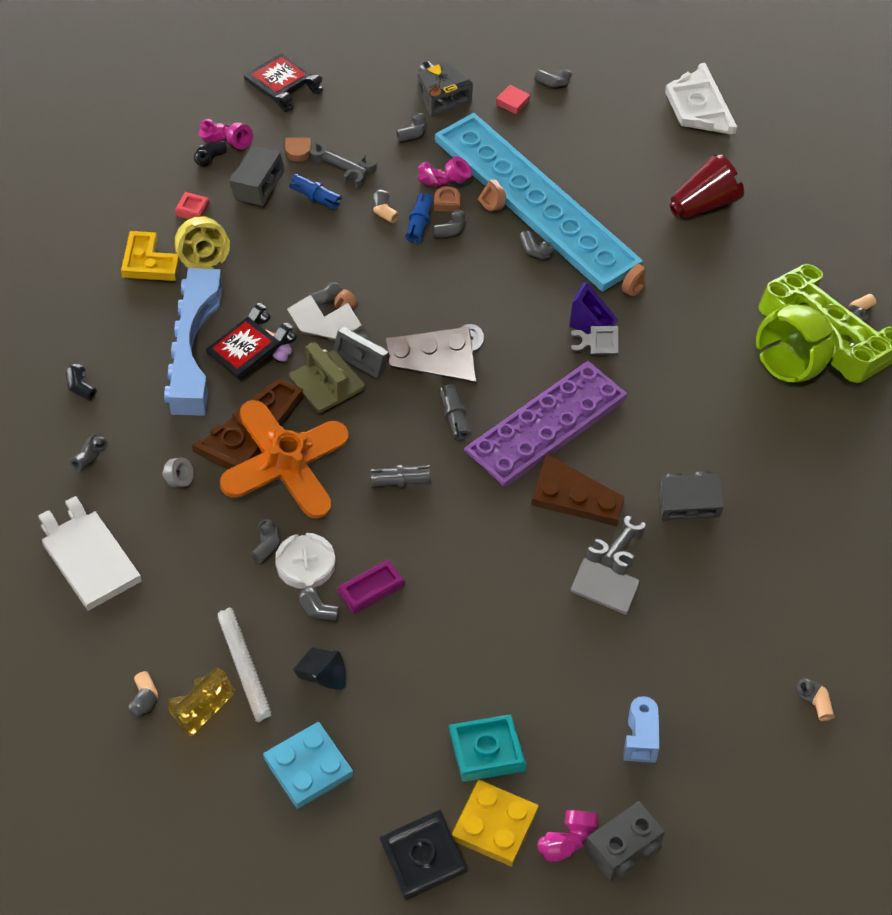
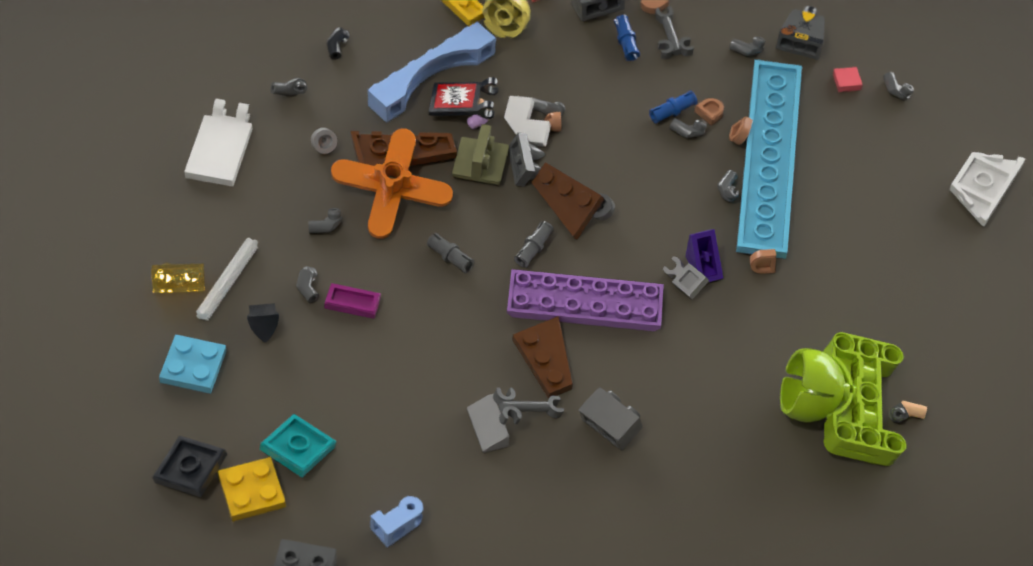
camera: 45 degrees right, 0 degrees up
(146, 697) = (154, 249): dark grey arm -> none
(305, 560) = (334, 253): white tile -> none
(381, 207) = (661, 76): arm -> none
(456, 171) = (734, 94): dark pink arm -> none
(559, 846) = (266, 533): dark pink arm -> none
(707, 189) = (897, 242): dark red cone -> none

